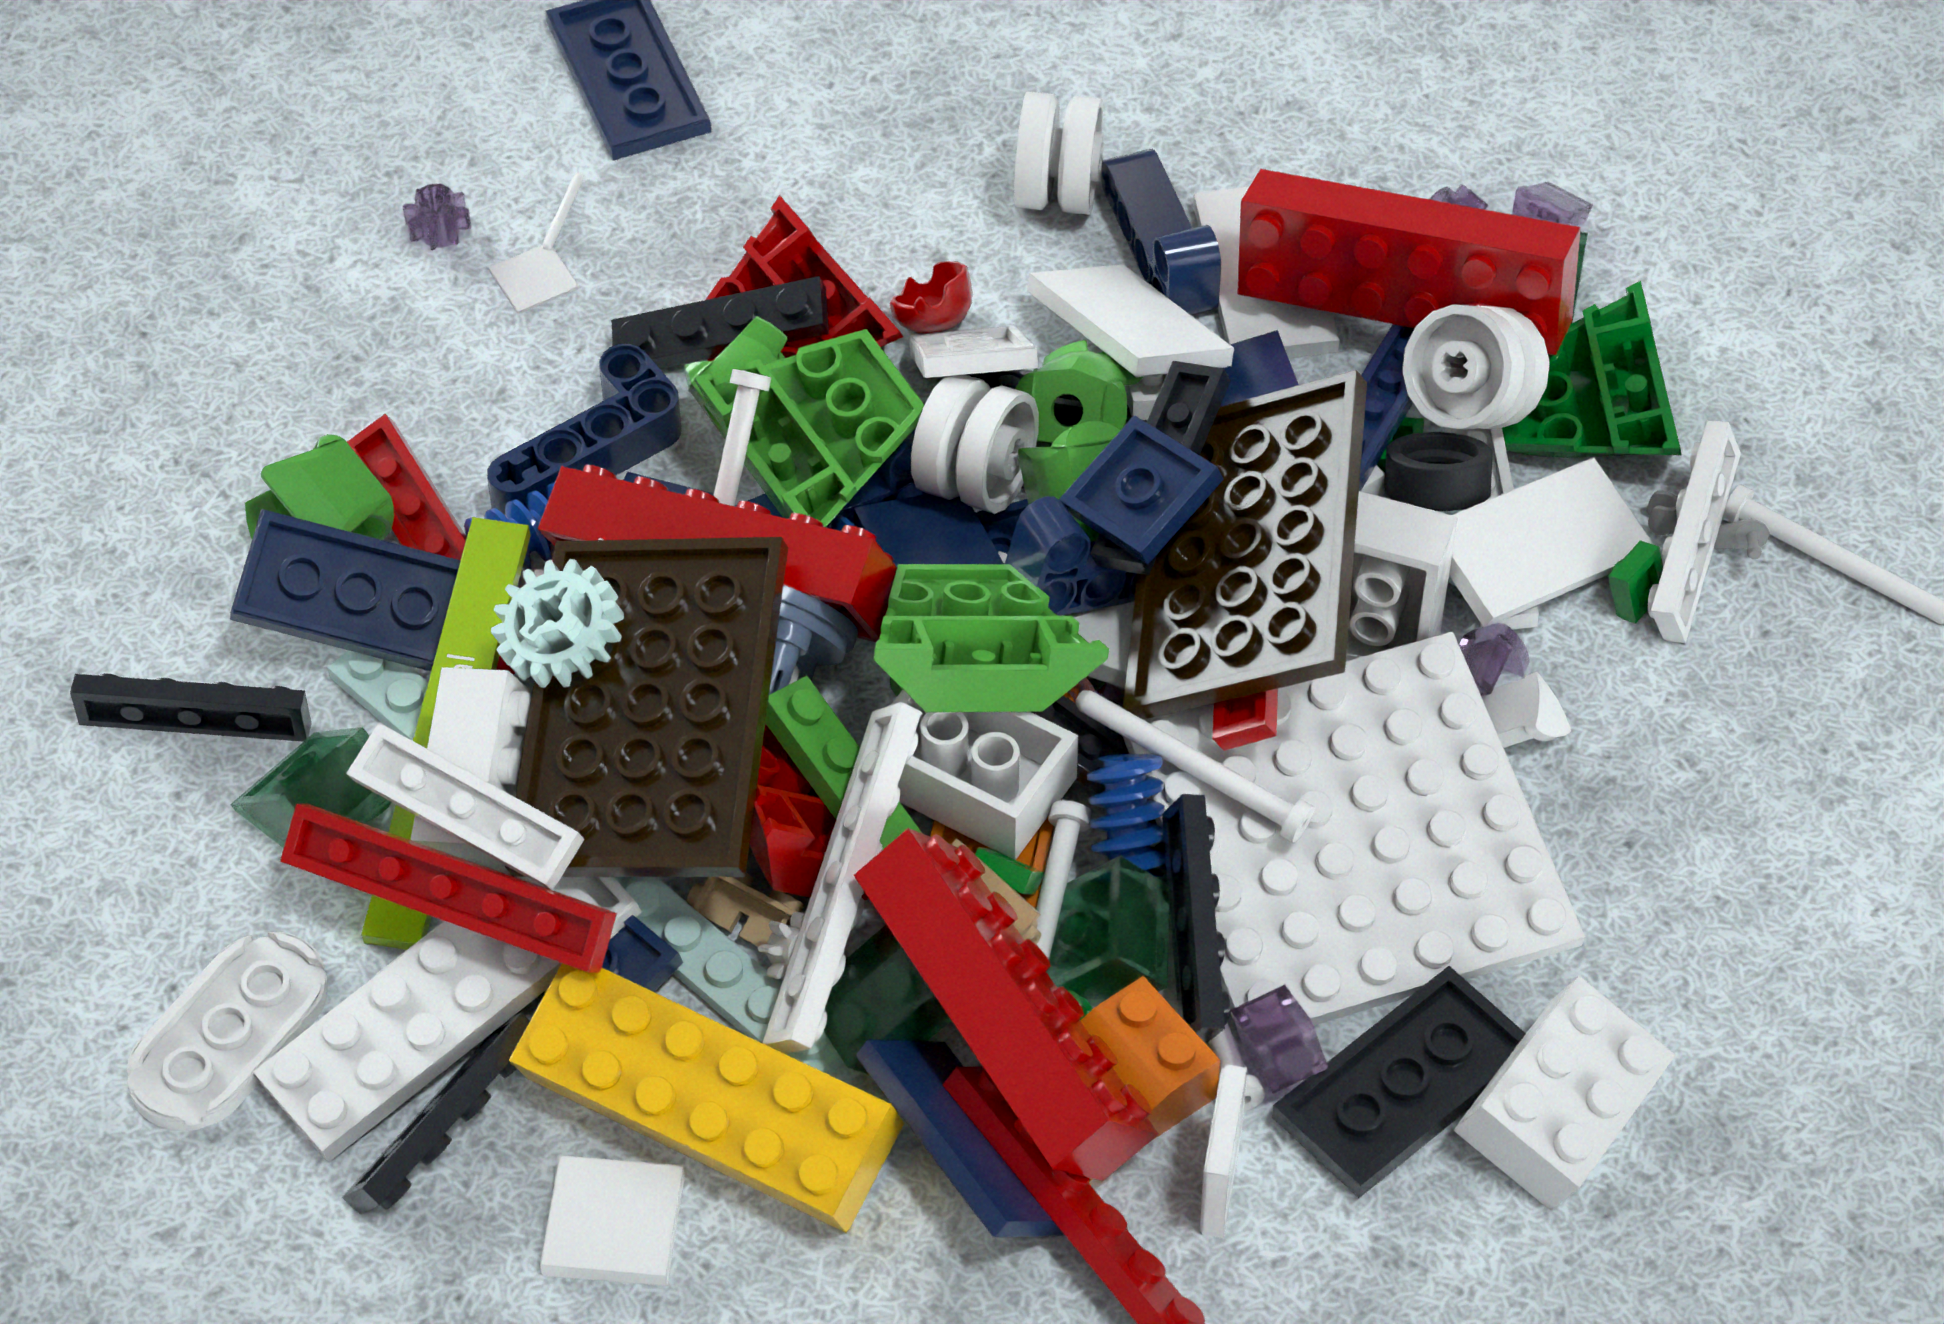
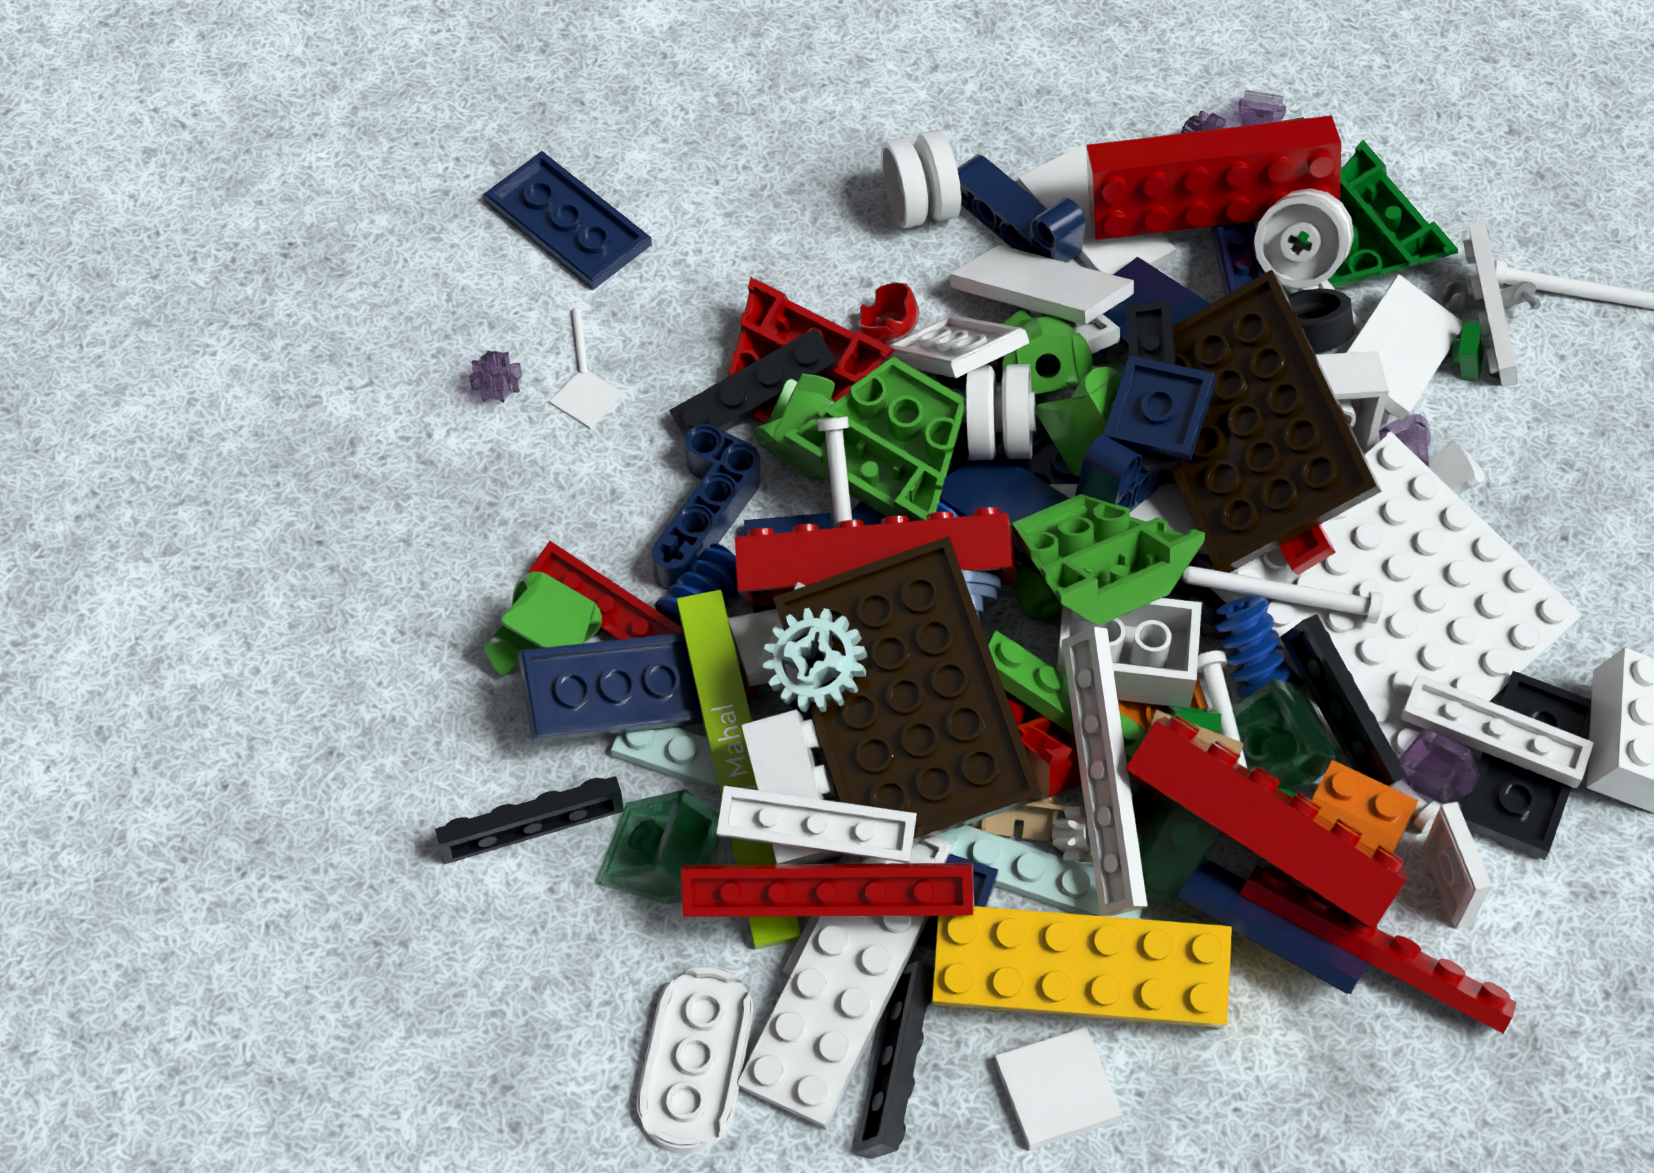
camera: 25 degrees left, 5 degrees up
(1372, 1020) = (1497, 731): none -> white plate

